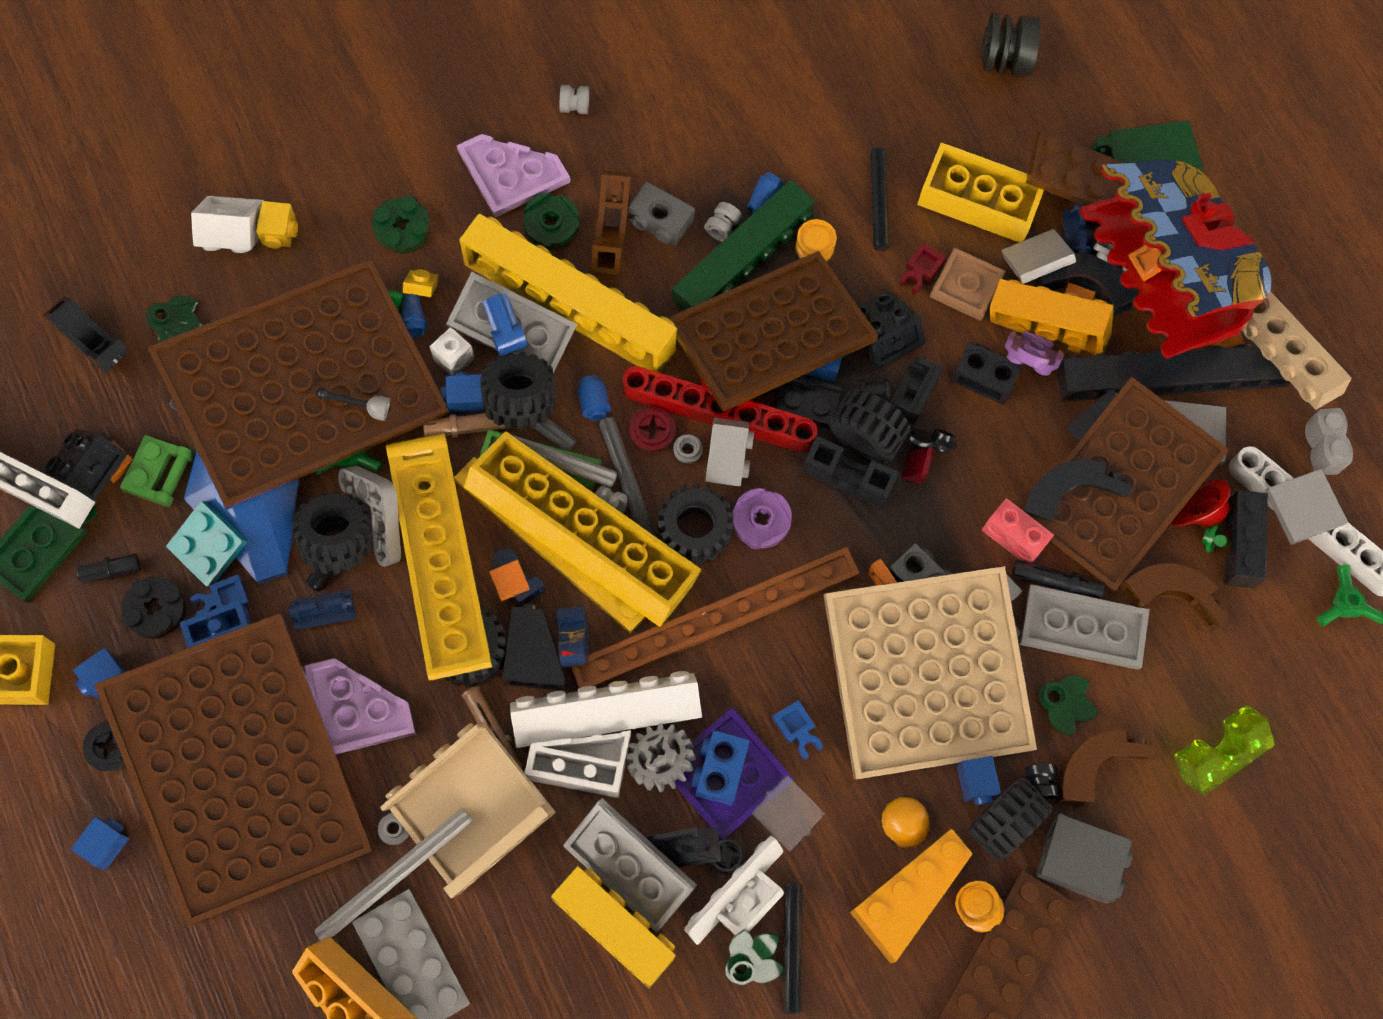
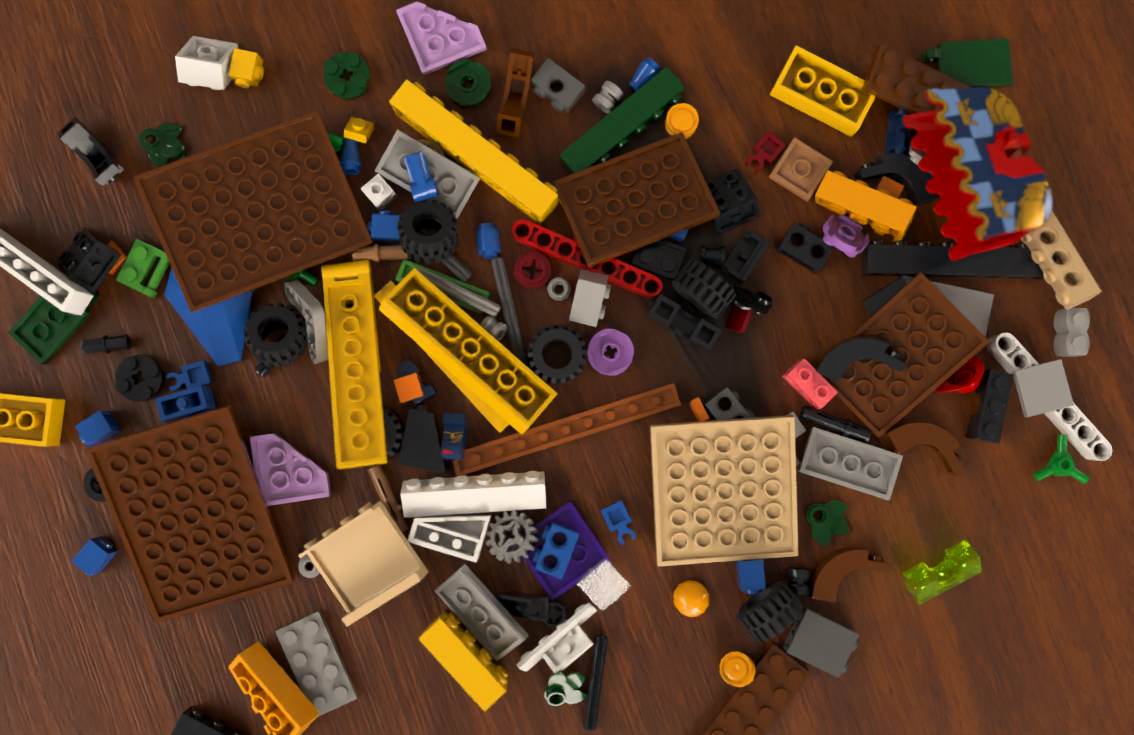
camera: 10 degrees right, 15 degrees up
(207, 543) = (180, 333): plate -> none
(322, 610) = (266, 392): dark blue hinge -> none
(376, 406) = (314, 238): hinge -> none
(394, 875) = (307, 603): light grey axle -> none
(879, 199) = (739, 86): black axle -> none
(906, 900) = (688, 654): light orange wedge -> none
(1038, 256) = (862, 152): light grey tile -> none
(1145, 261) = (948, 176): orange tile -> none
(1212, 538) = (963, 402): green plate -> none

